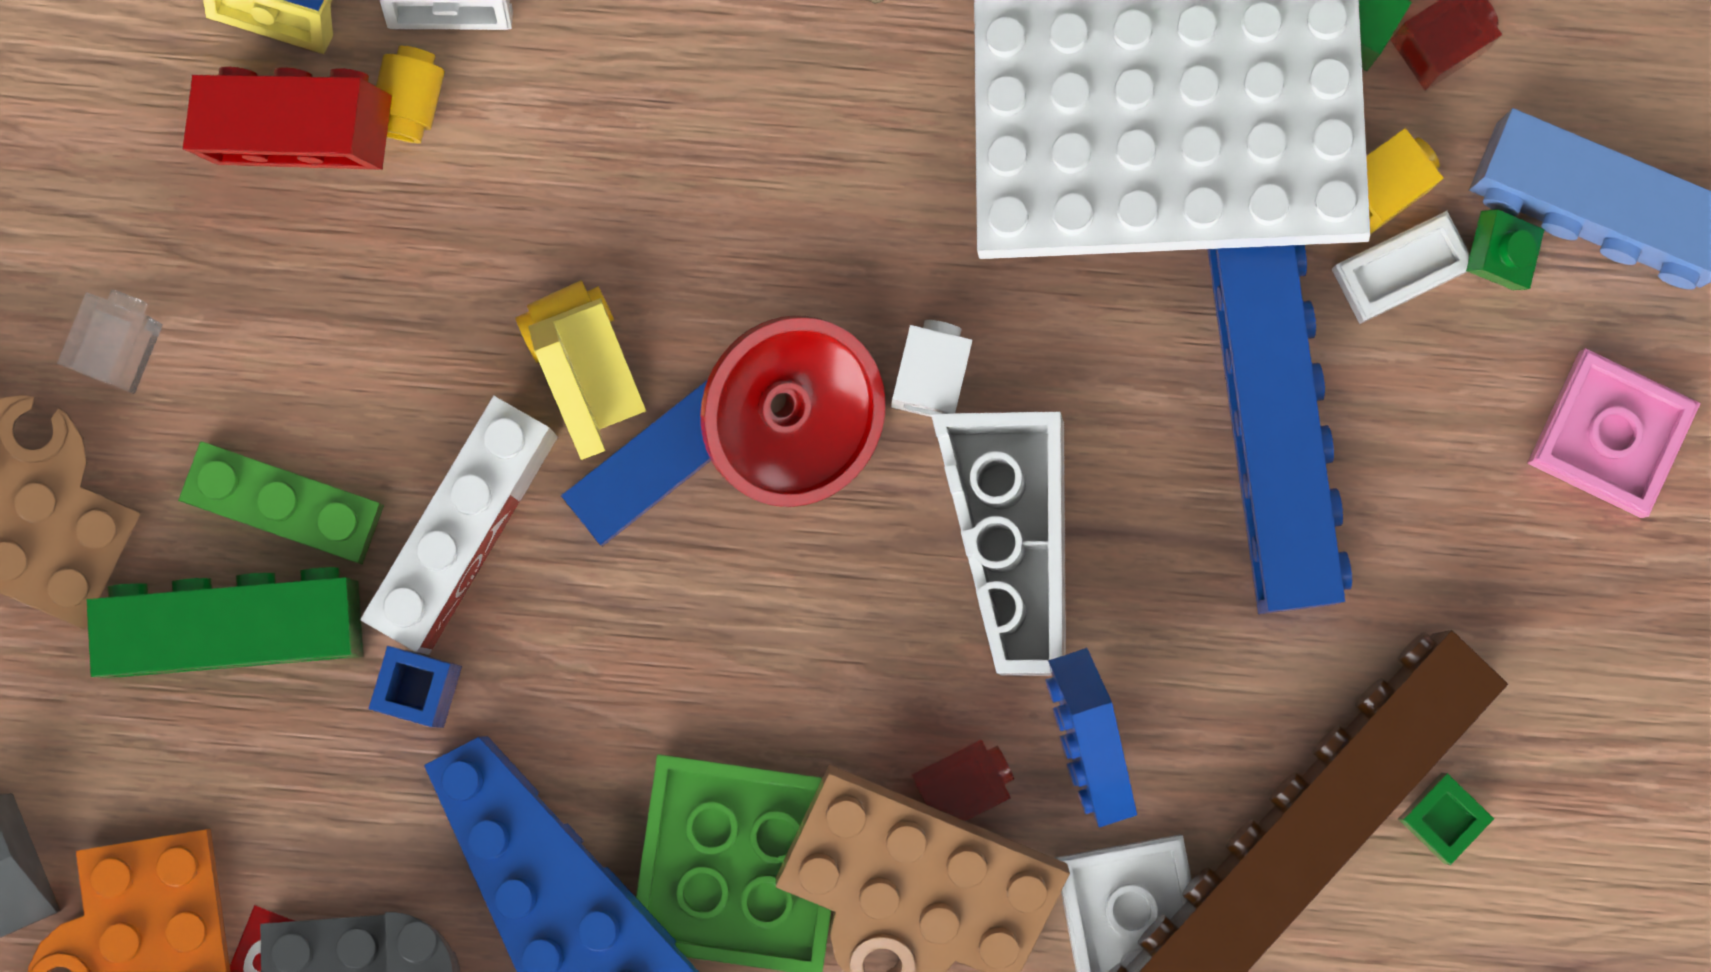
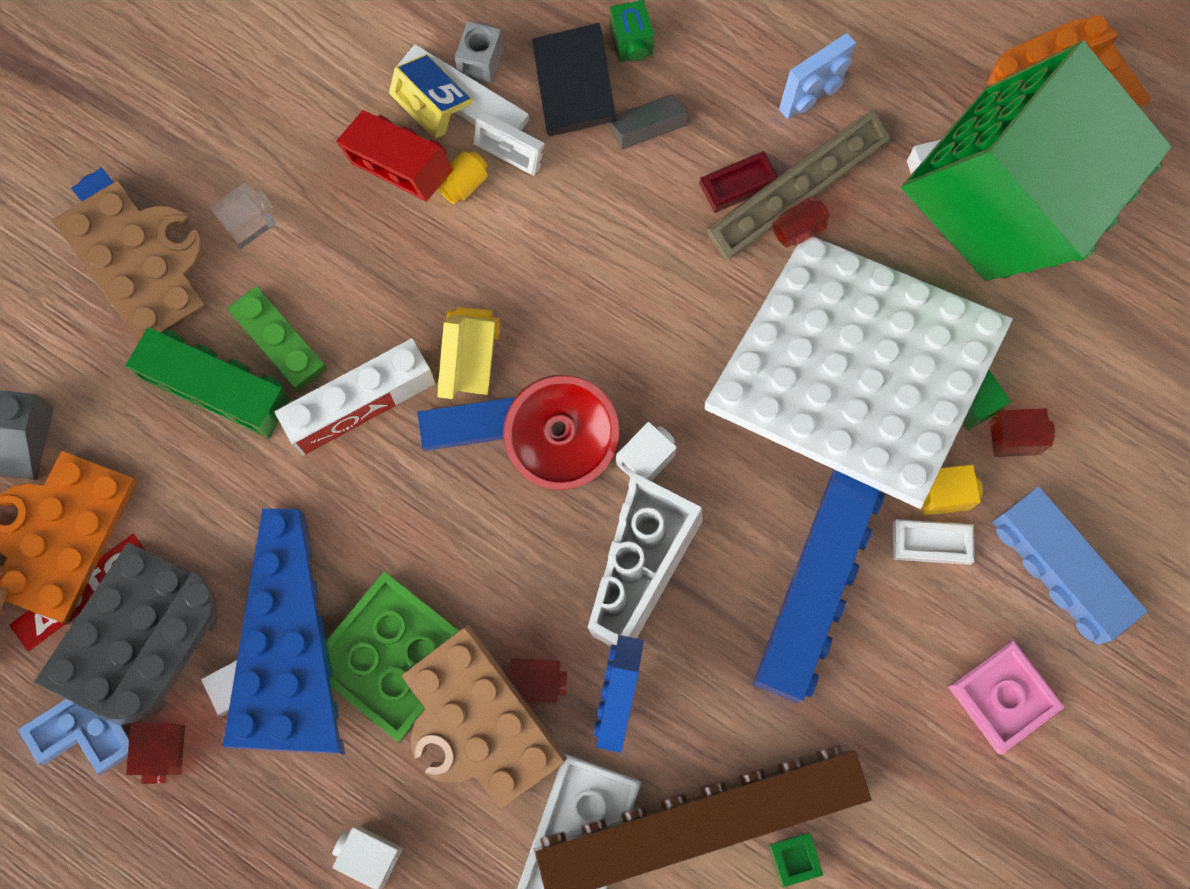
camera: 30 degrees right, 10 degrees down
(415, 687) = (281, 463): blue brick -> none
(1505, 250) = (995, 562): green plate -> none

